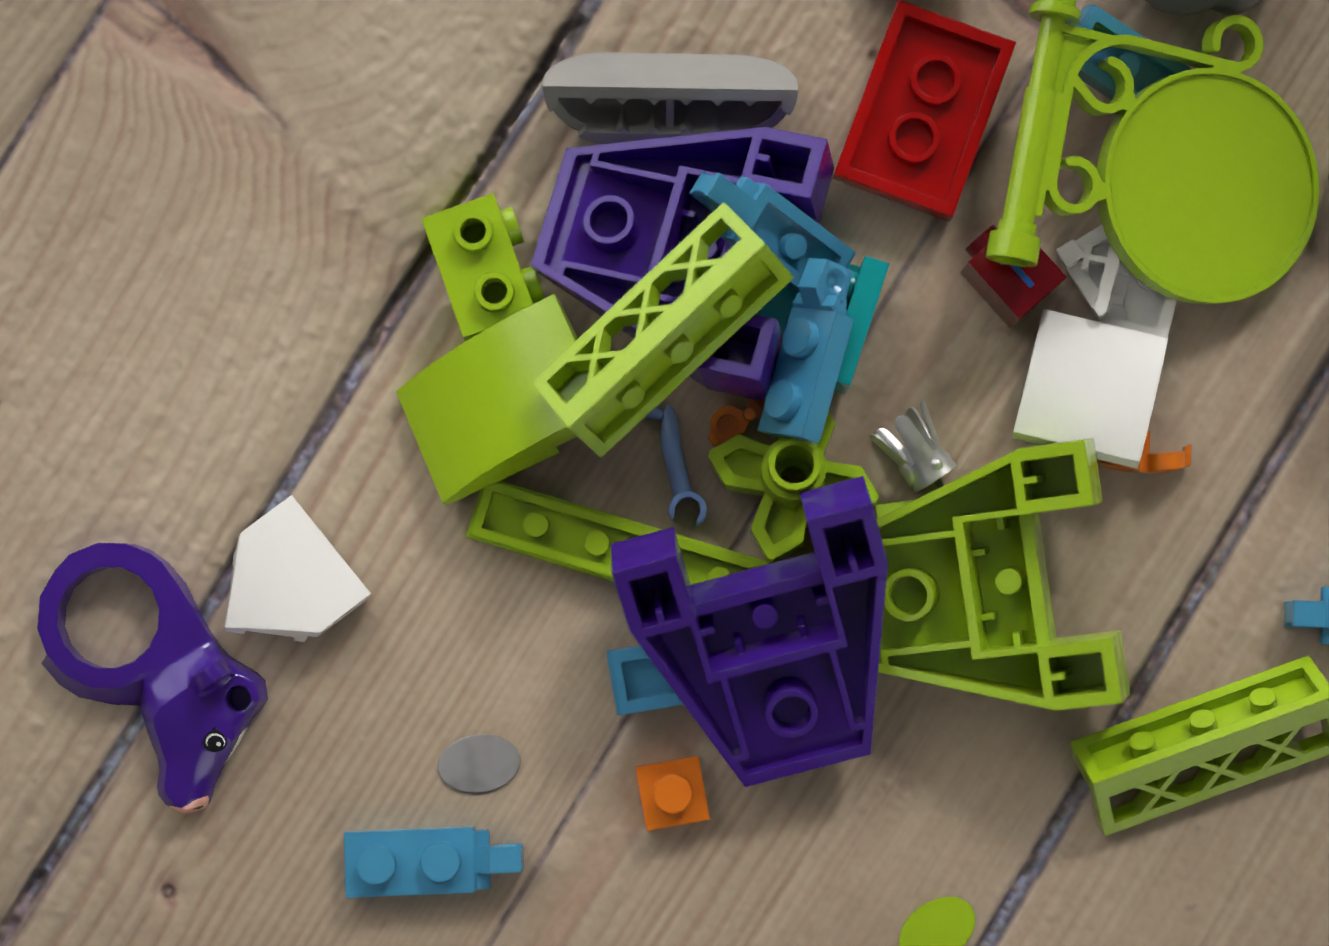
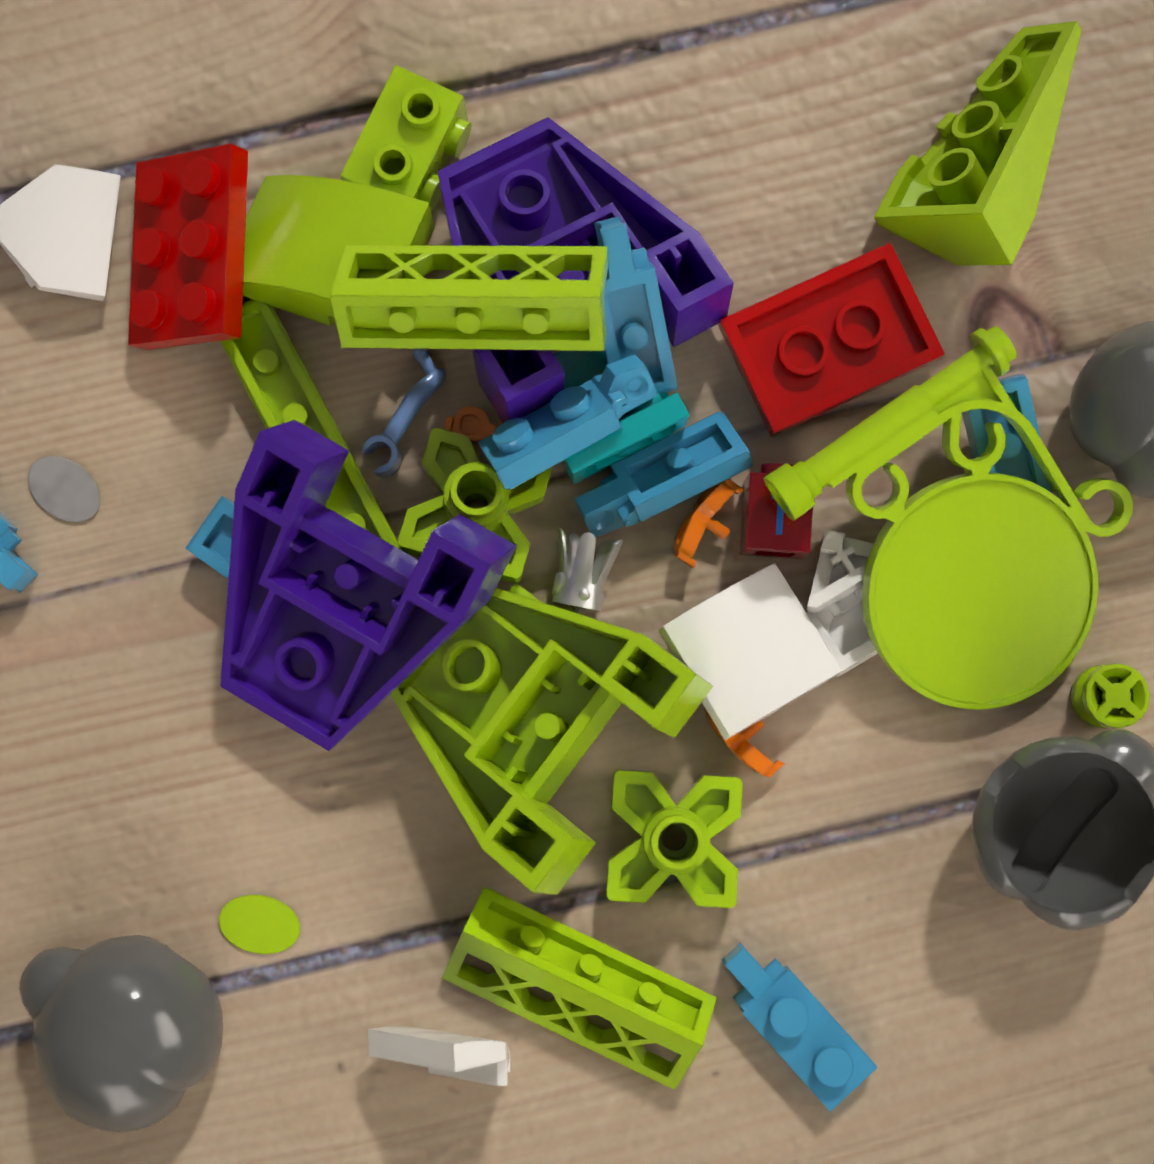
camera: 45 degrees right, 0 degrees up
(401, 498) = (188, 248): none -> red plate
(667, 94) = (657, 149): light grey brick -> none
(672, 793) = (172, 642): orange plate -> none
(906, 322) = (665, 475): none -> dark azure hinge
(961, 341) = (701, 518): none -> orange piece
(1164, 882) = (443, 1053): none -> white slope
(1167, 610) = (647, 863): none -> lime plant

